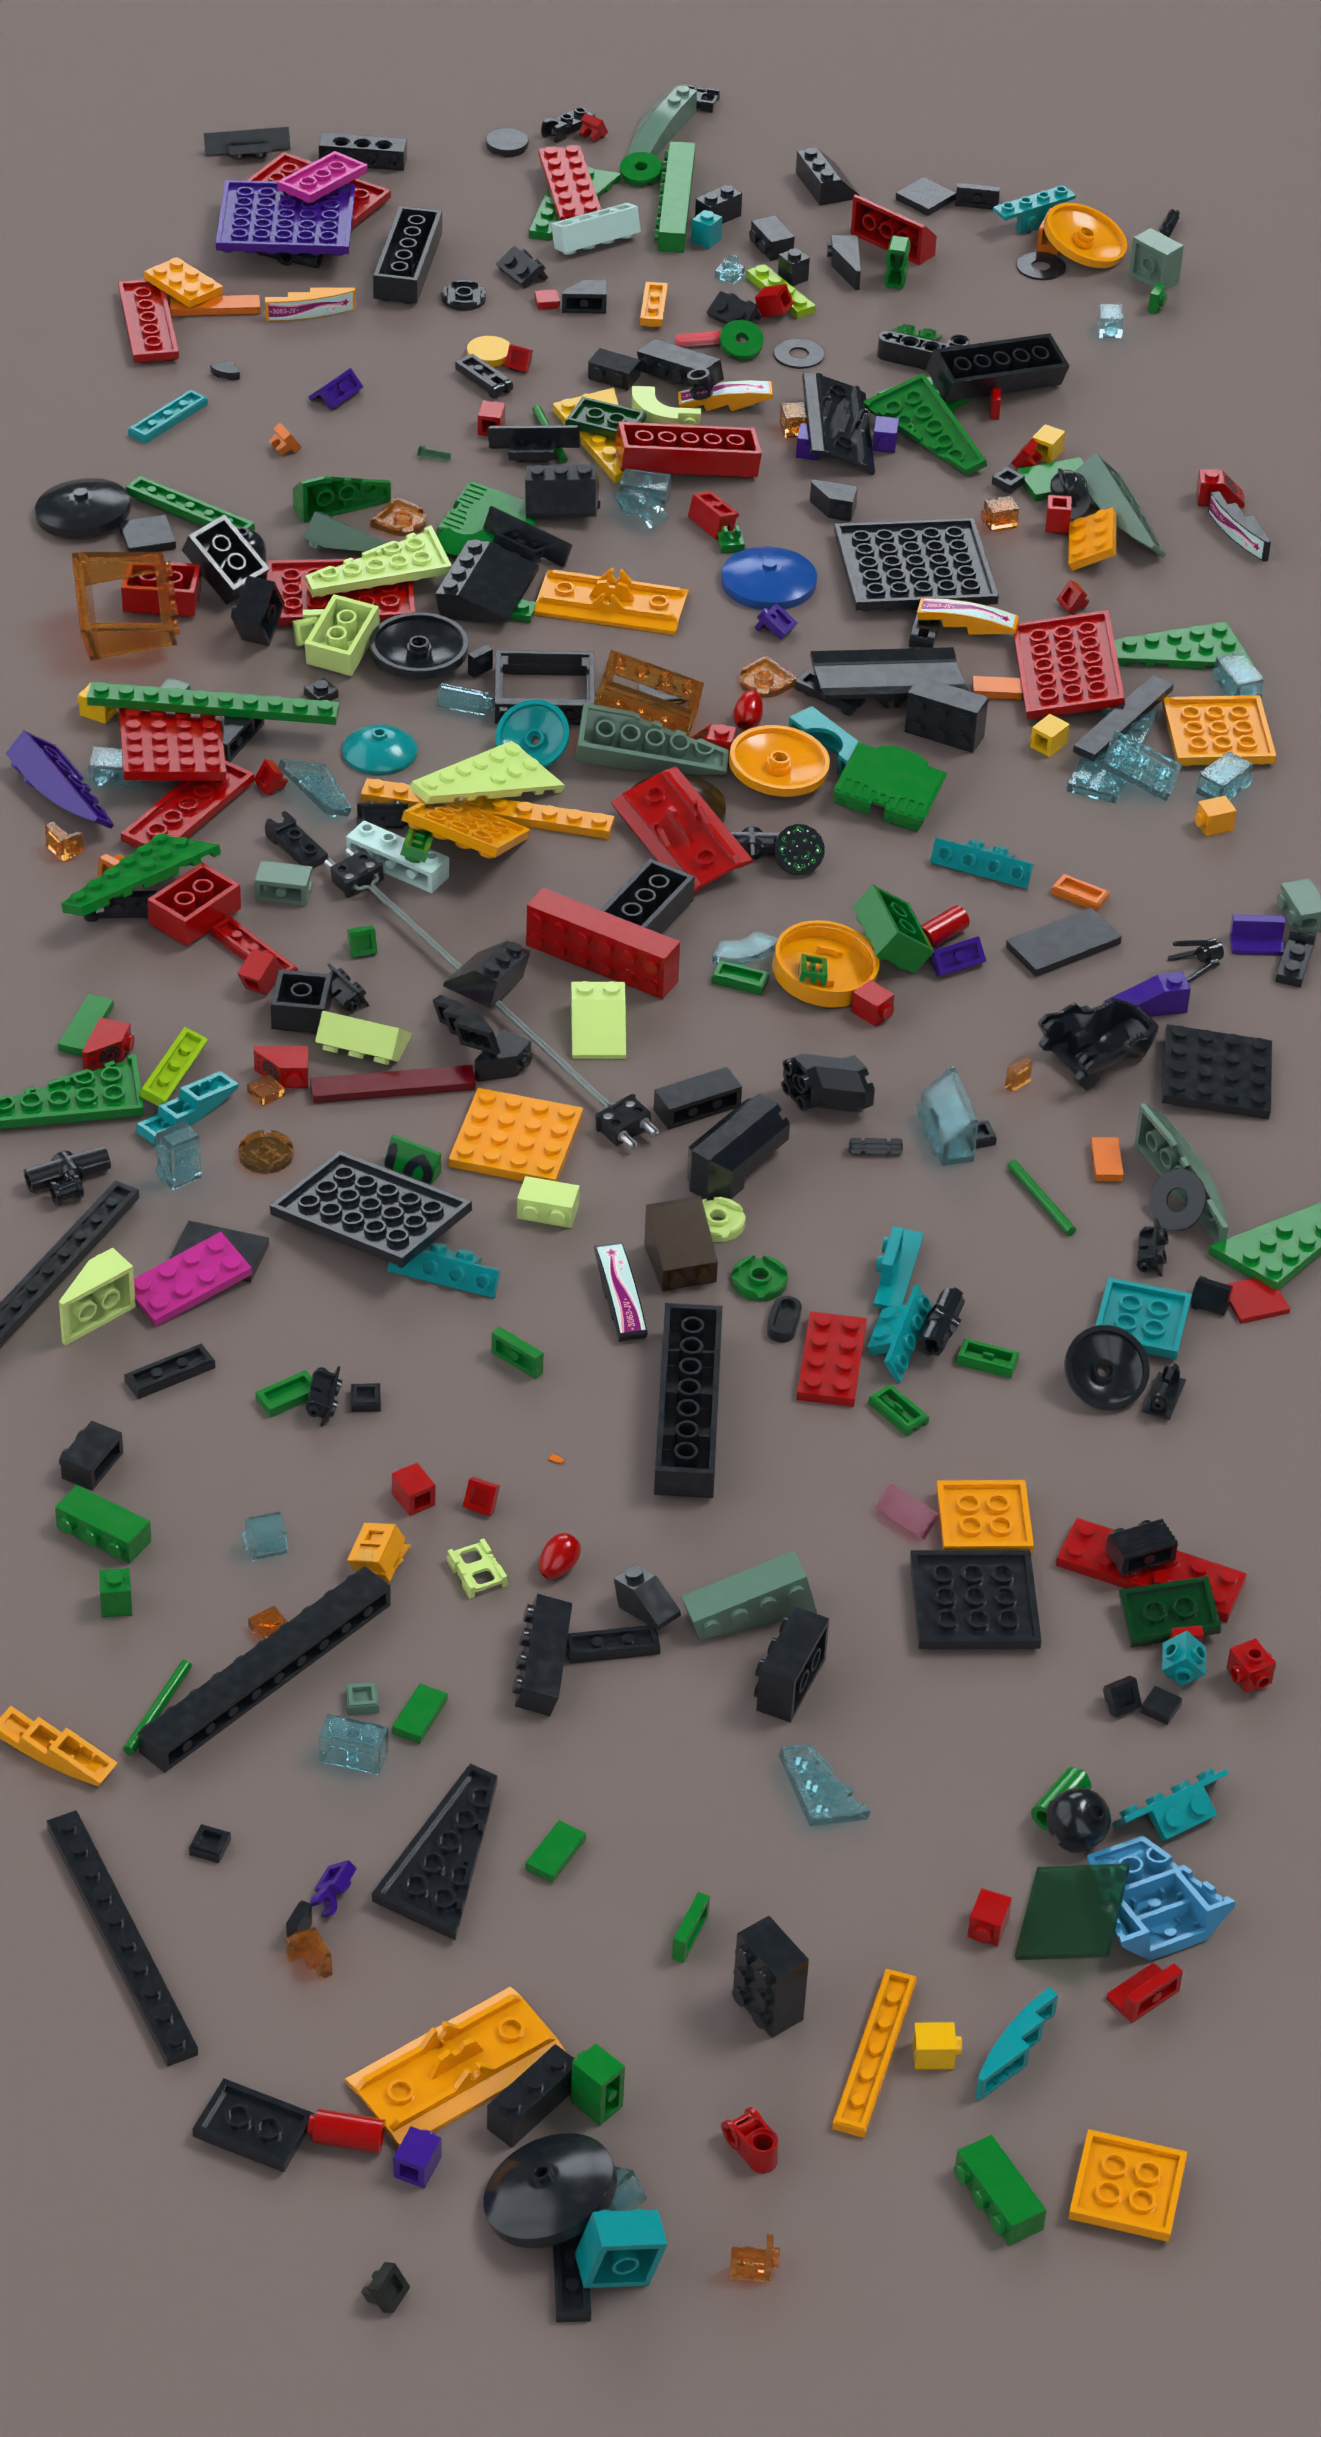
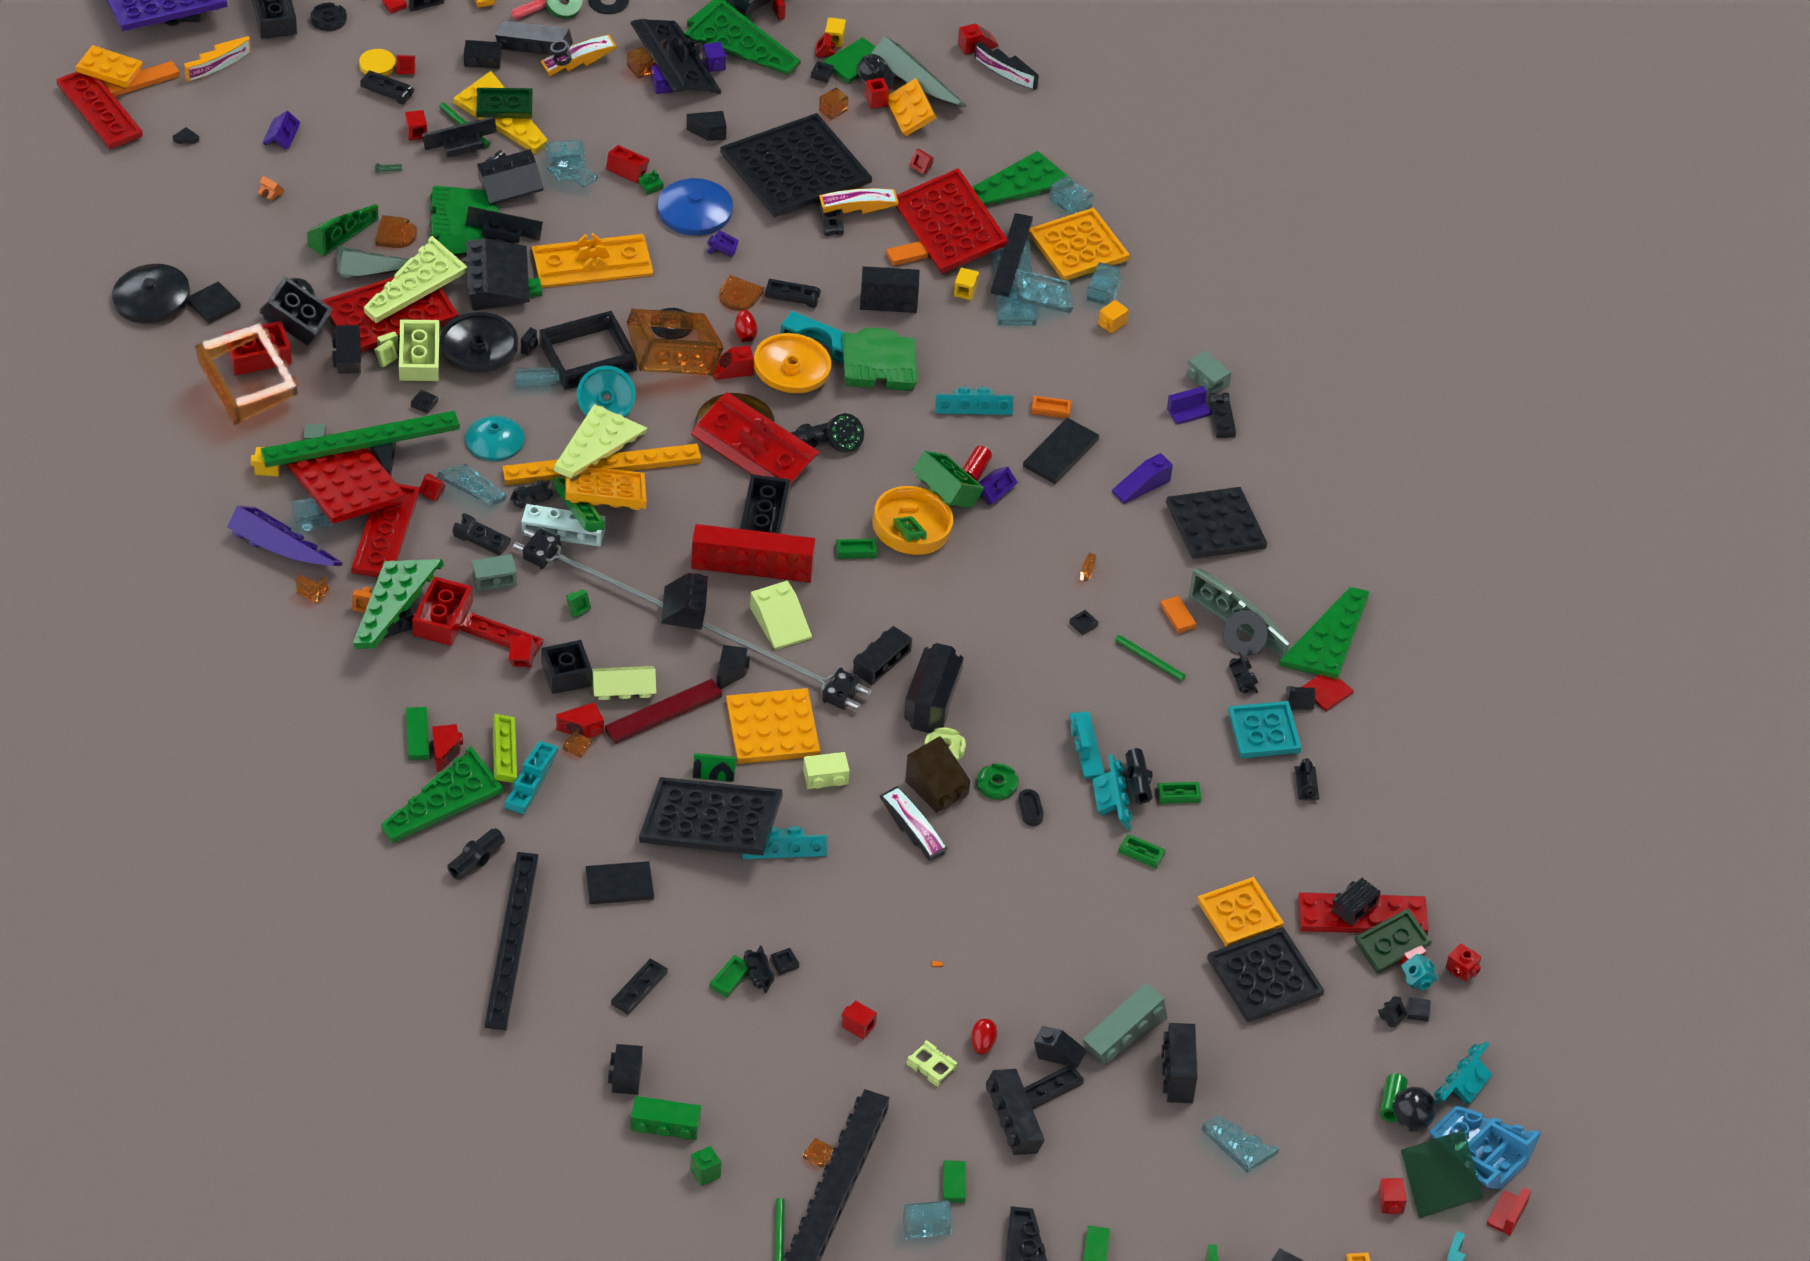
camera: 25 degrees left, 5 degrees up
(66, 1189) = (485, 870): black bush -> none
(97, 1295) = (566, 943): yellowish green slope -> none
(168, 416) = (165, 191): teal tile -> none
(178, 1155) = (554, 818): clear light blue brick -> none
(181, 504) = (231, 269): green plate -> none
(189, 1279) = (613, 912): dark pink plate -> none
(265, 1152) = (605, 794): clear orange tile -> none
(265, 1536) = (780, 1088): clear light blue brick -> none
(351, 994) = (594, 648): black hinge -> none
(362, 1698) = (910, 1184): sand green tile -> none
(379, 1549) = (863, 1073): light orange piece -> none
(466, 1024) = (701, 650): black slope -> none
(481, 1496) = (907, 1009): red tile -> none
(517, 1352) = (870, 893): green plate -> none
(632, 743) = (684, 379): sand green wedge -> none
(644, 400) = (543, 89): yellowish green arch -> none
(688, 449) = (582, 113): red brick -> none
(688, 1401) = (1006, 891): black brick -> none
(755, 946) = (848, 525): clear light blue tile -> none
(827, 1082) = (968, 616): black brick -> none
(831, 1359) = (1078, 827): red plate -> none
(873, 1003) = (961, 541): red brick -> none
(876, 1146) = (1020, 654): black axle -> none
(883, 672) = (828, 267): black hinge -> none
(907, 1511) = (1189, 925): clear pink tile -> none
(949, 1119) = (1064, 617): clear light blue slope -> none
(1097, 1037) = (1129, 522): black animal -> none
(1120, 1358) = (1272, 769): black dish -> none
(1209, 952) = (1162, 430): black plant -> none

